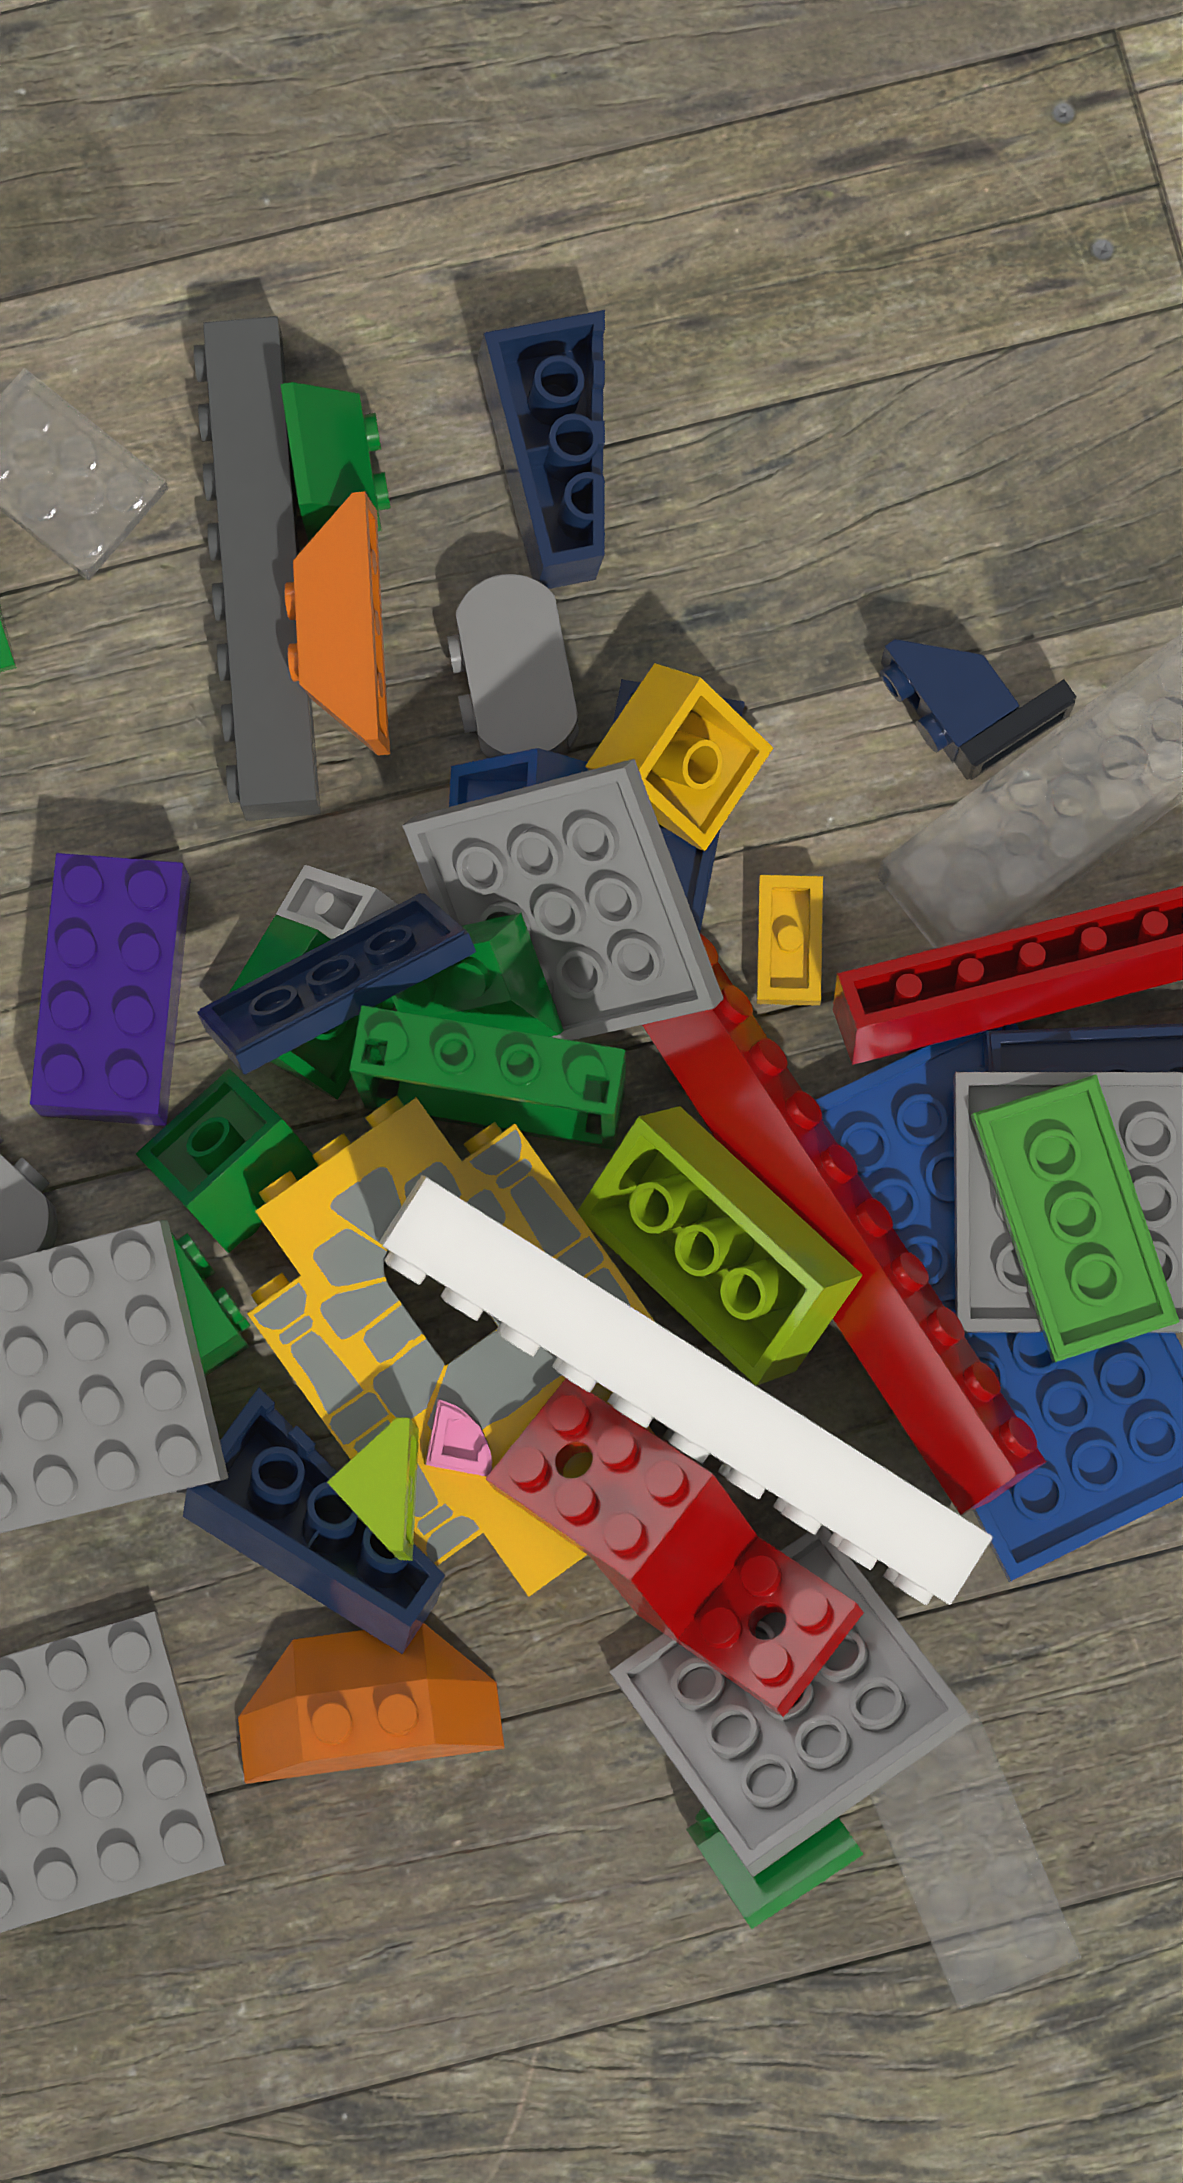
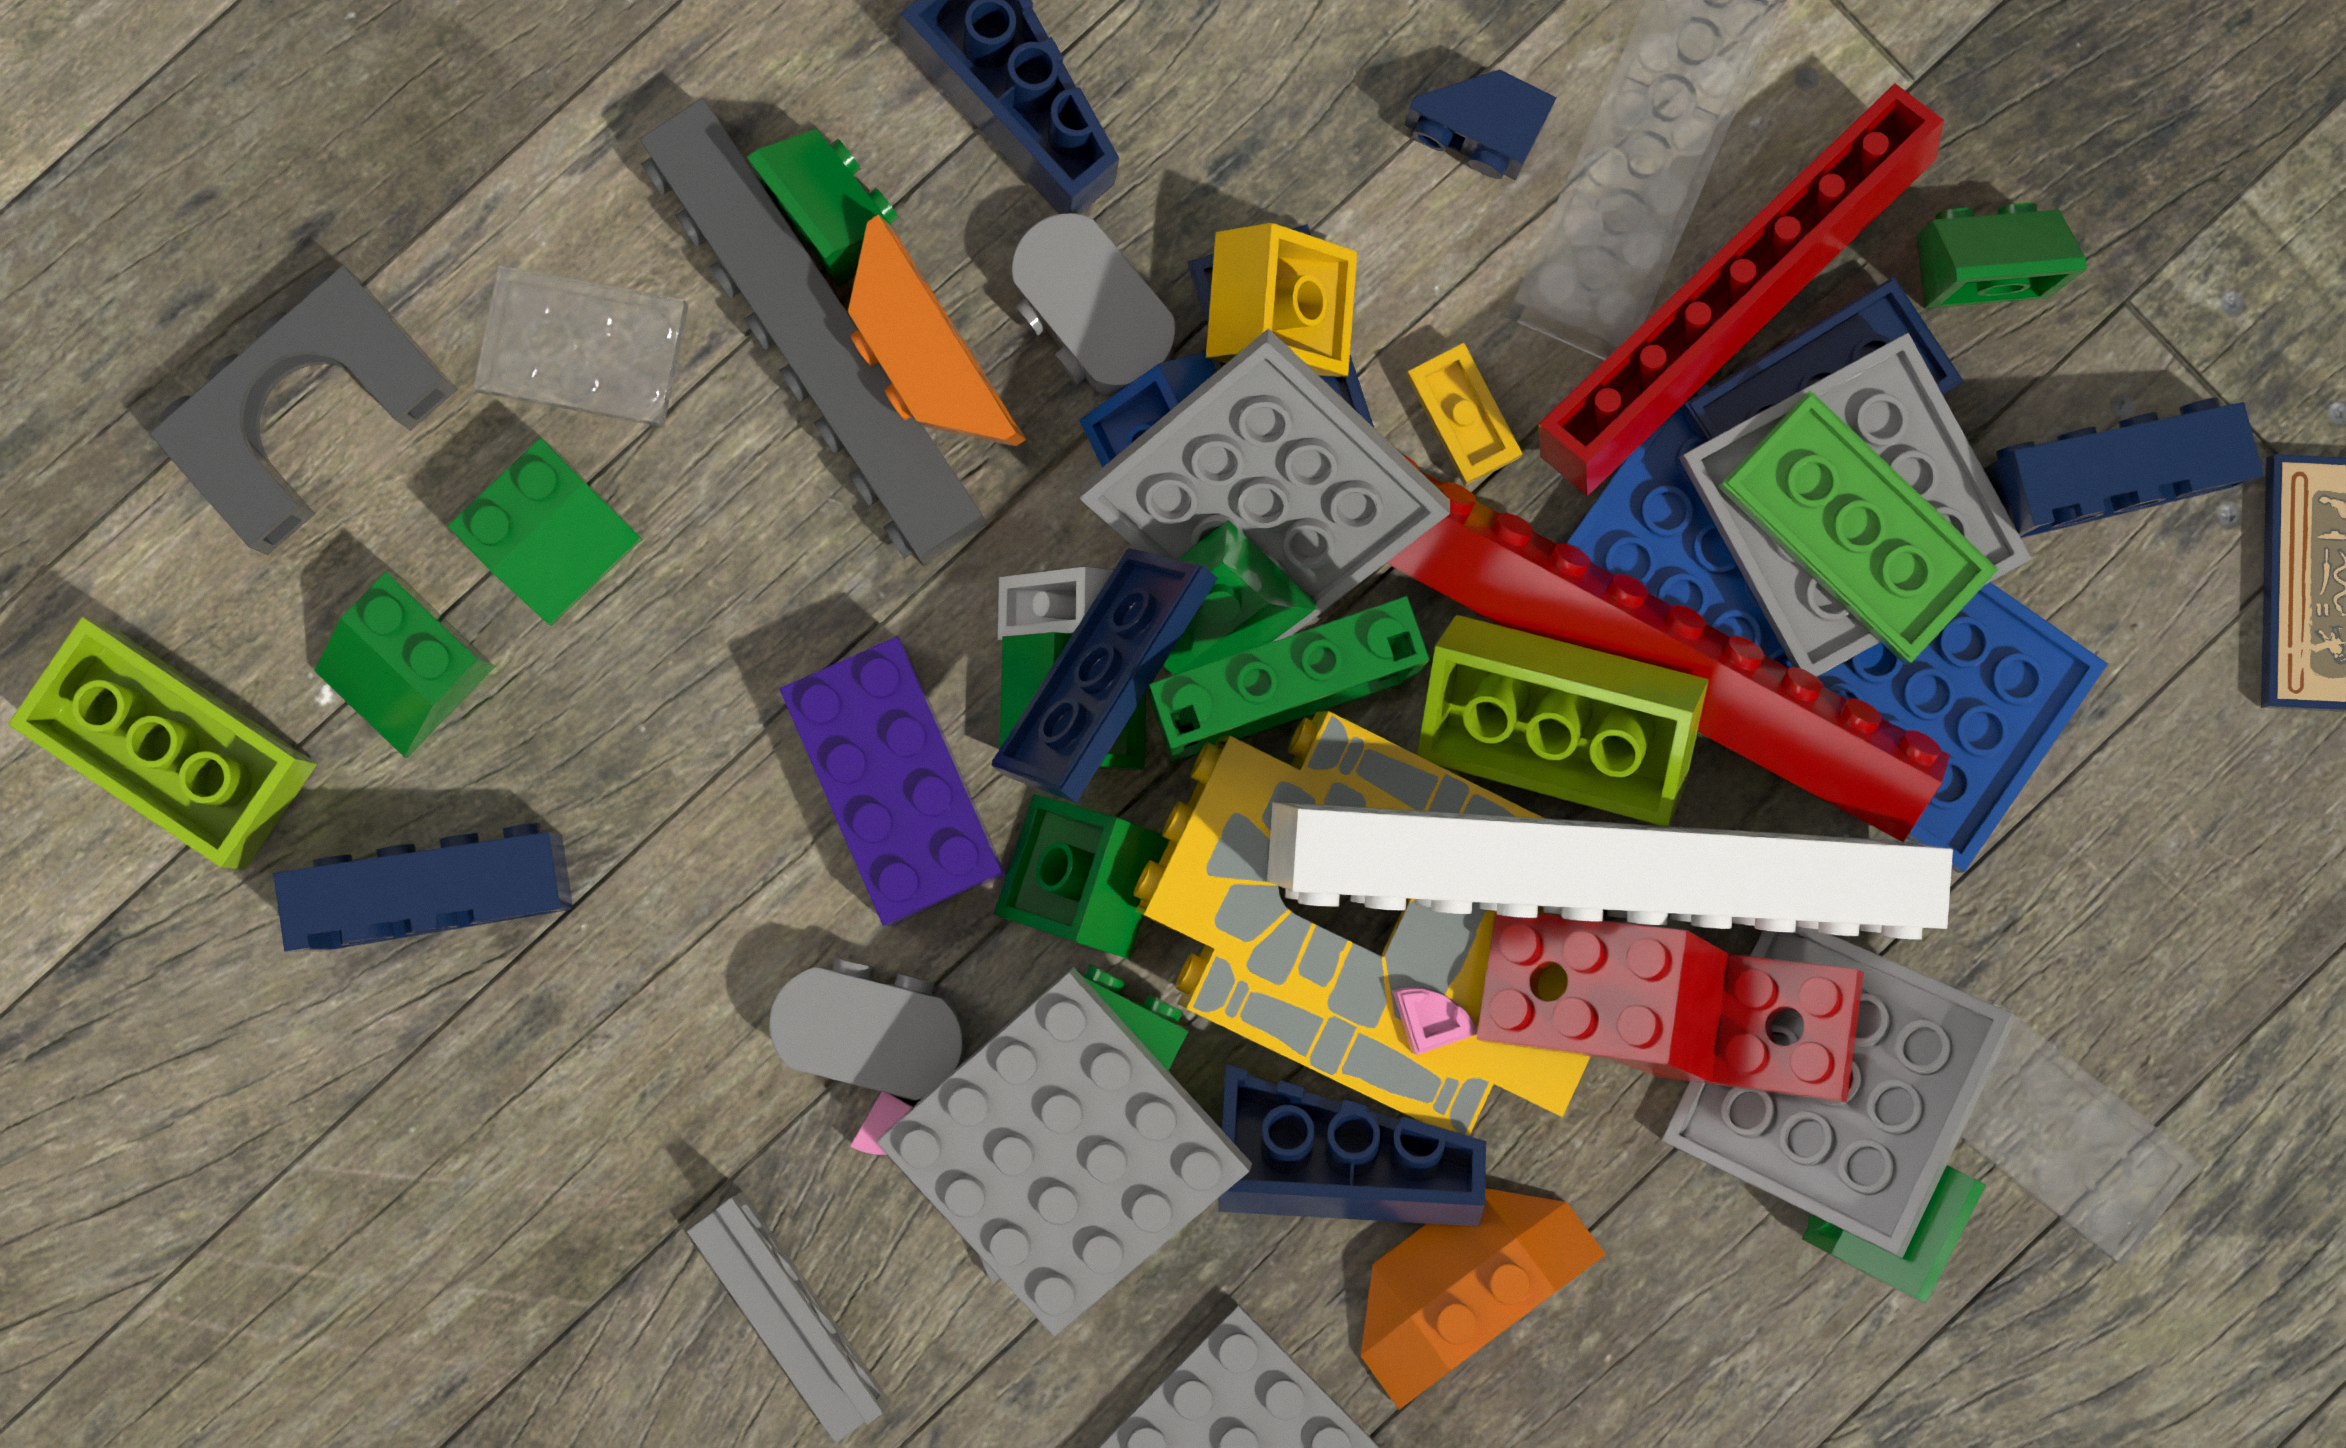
camera: 30 degrees left, 5 degrees up
(382, 1485) = (1392, 1098): lime slope -> none
(1015, 730) = (1560, 122): black tile -> none

